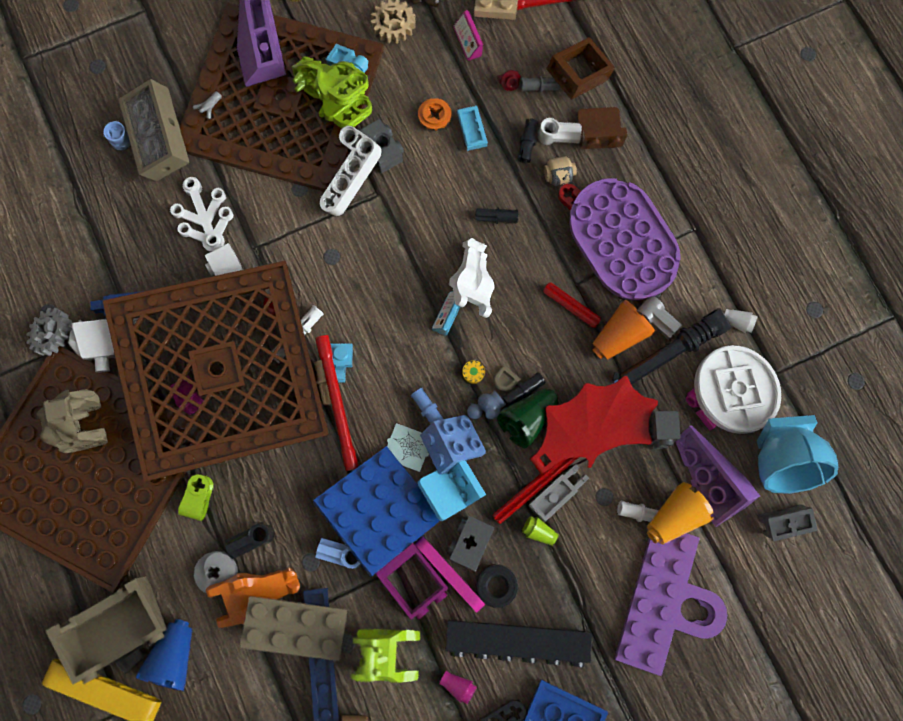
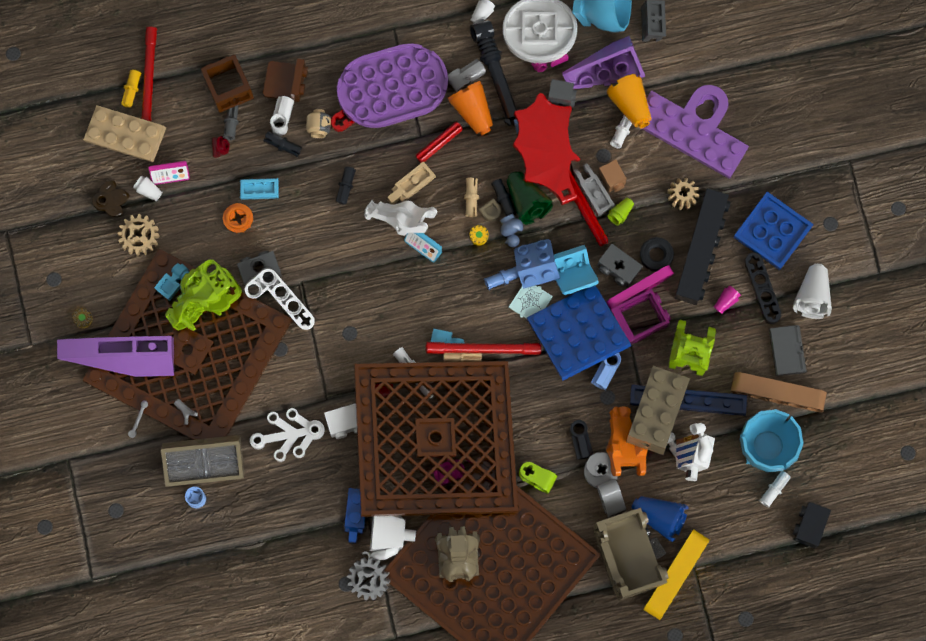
camera: 75 degrees left, 0 degrees up
(180, 63) = (132, 433): none -> light grey hinge
(181, 591) = (611, 498): none -> light grey beam
(248, 683) = (692, 452): none -> white torso
(446, 18) = (147, 188): none -> white cone
(515, 284) = (411, 183): none -> tan hinge
(515, 353) = (471, 197): none -> tan pin
(576, 612) = (678, 199): none -> tan gear
(580, 512) = (612, 176): none -> medium nougat brick

